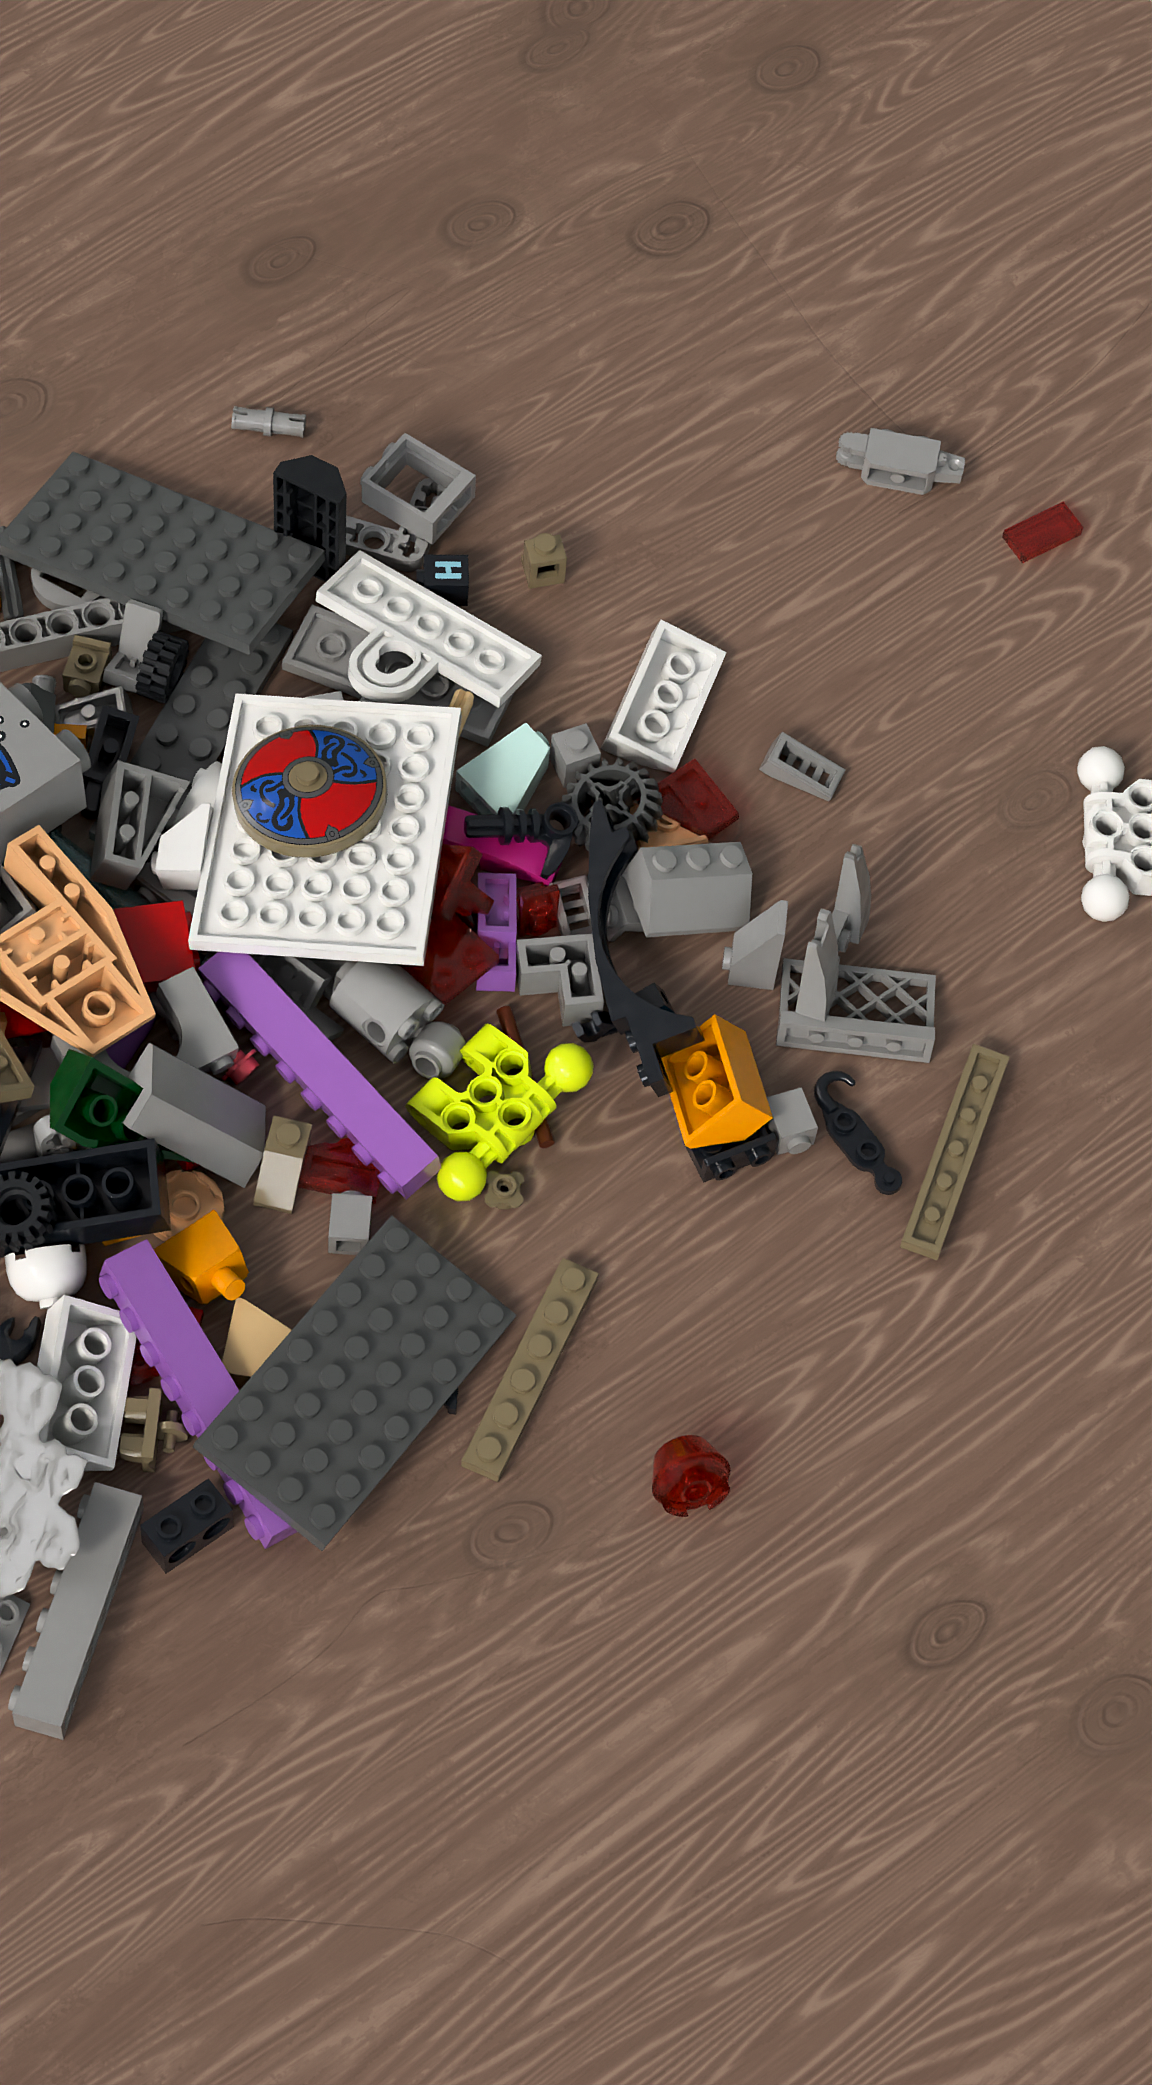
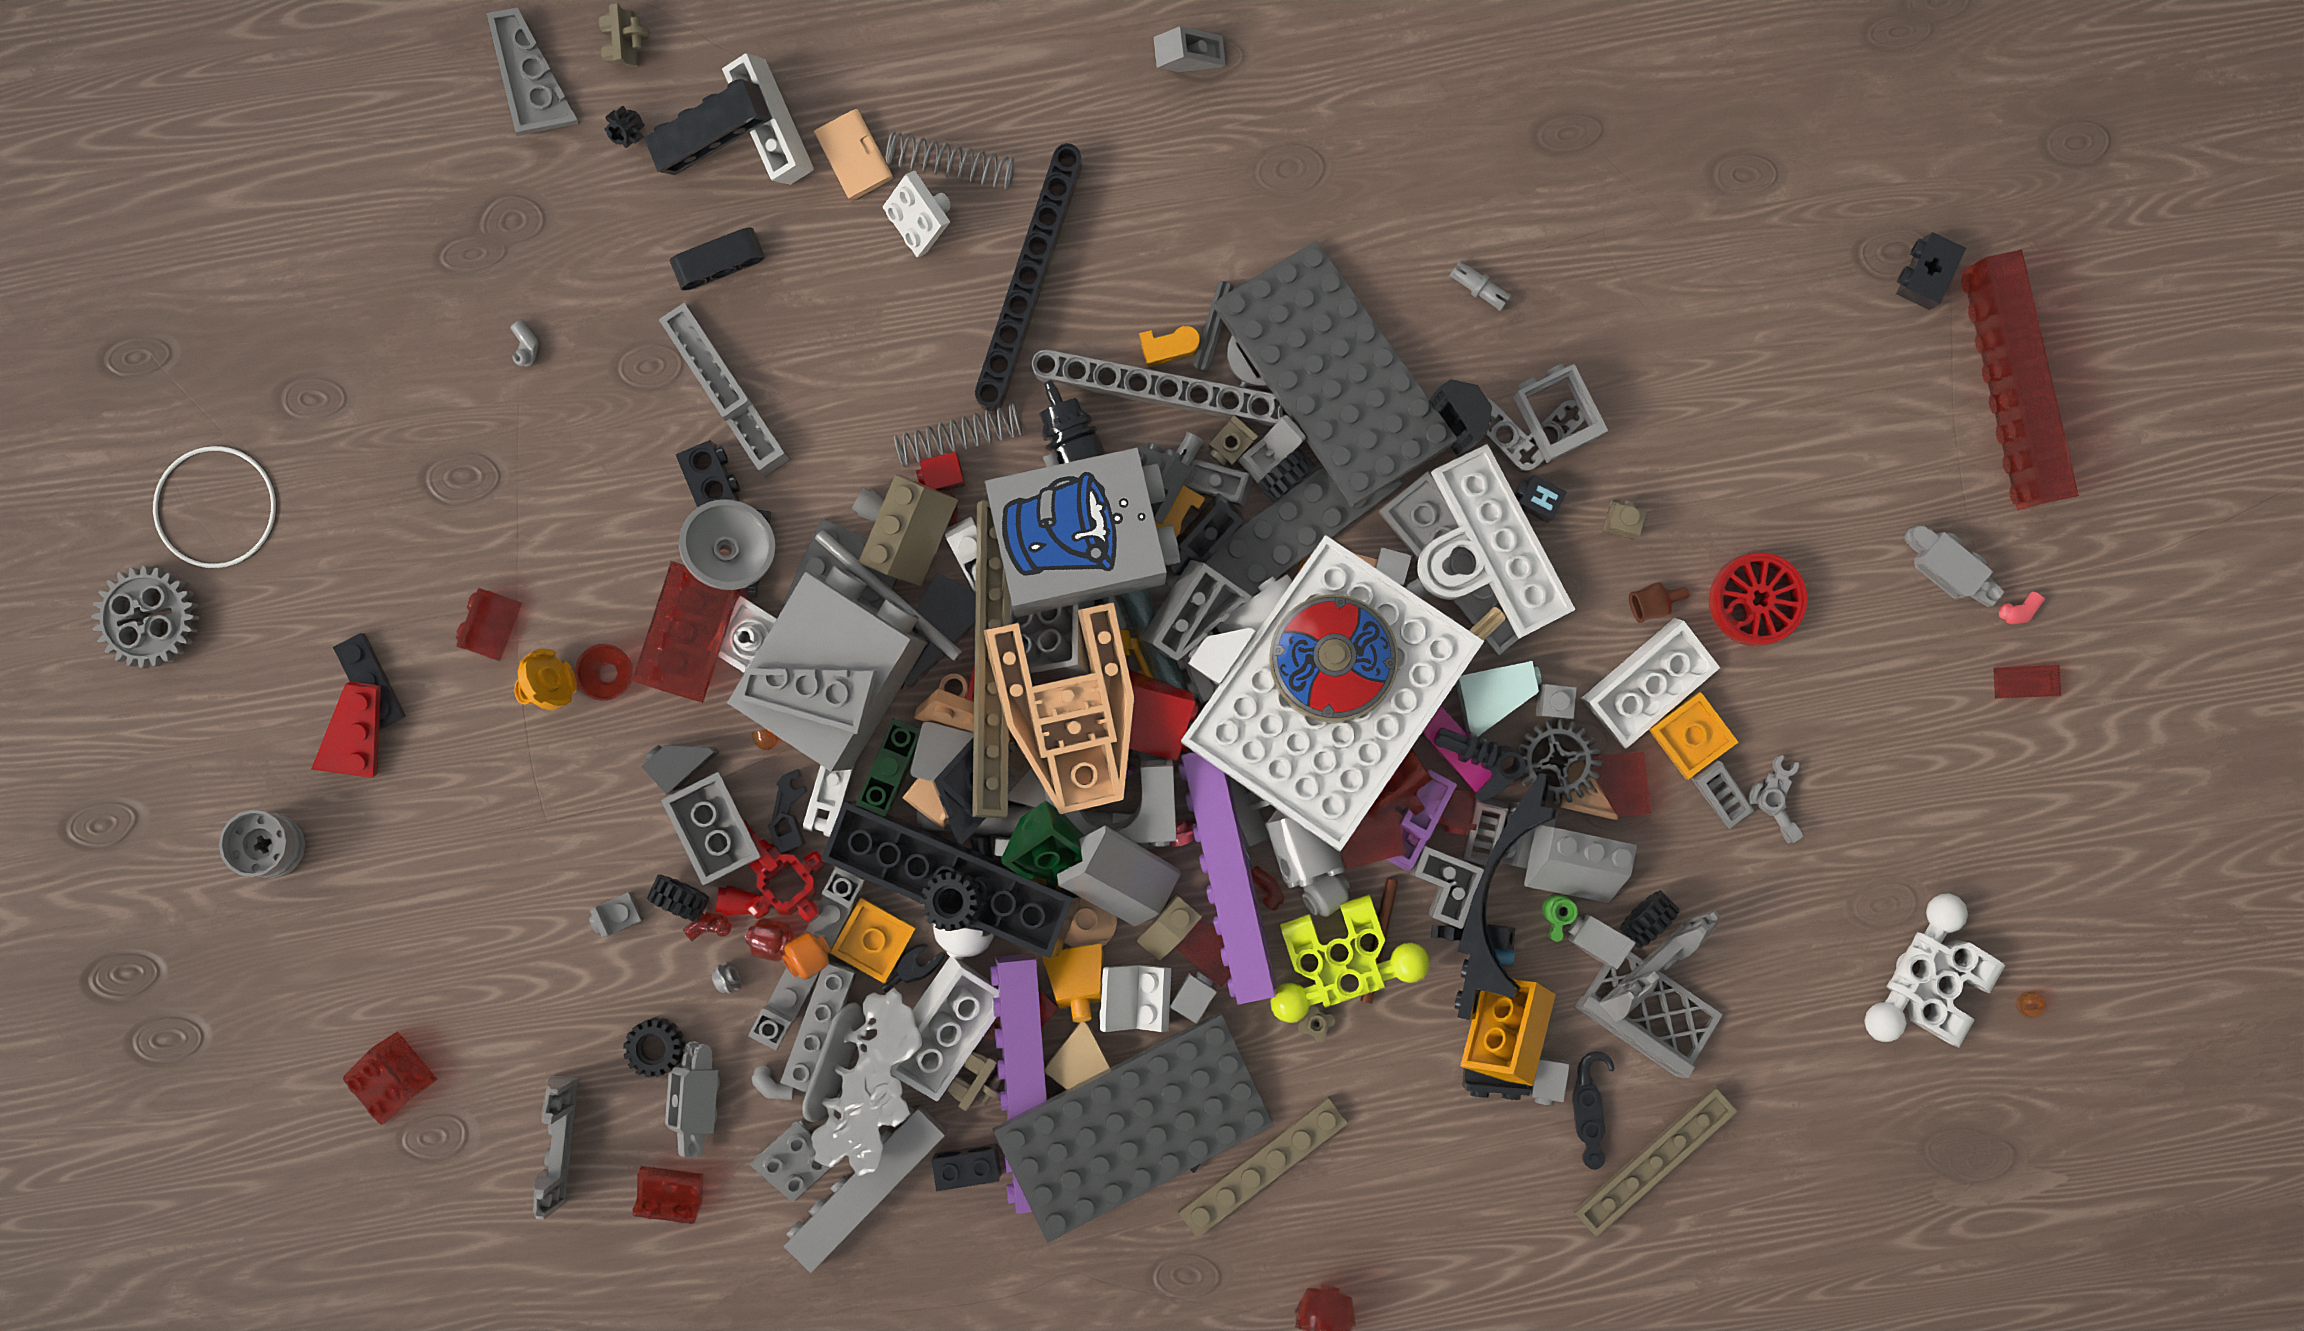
camera: 30 degrees right, 25 degrees up
(287, 1251) = (1135, 998): none -> white bracket
(378, 1078) = (1268, 884): none -> clear red arm
(621, 622) = (1655, 601): none -> copper piece
(701, 954) = (1558, 911): none -> bright green piece
(713, 222) = (1942, 258): none -> black brick
(725, 573) = (1722, 614): none -> red piece
(738, 726) = (1693, 735): none -> light orange plate
(802, 902) = (1649, 919): none -> black tyre
(857, 749) = (1772, 798): none -> light grey piece
(859, 272) = (2019, 381): none -> clear red brick
(995, 474) = (2021, 613): none -> coral arm

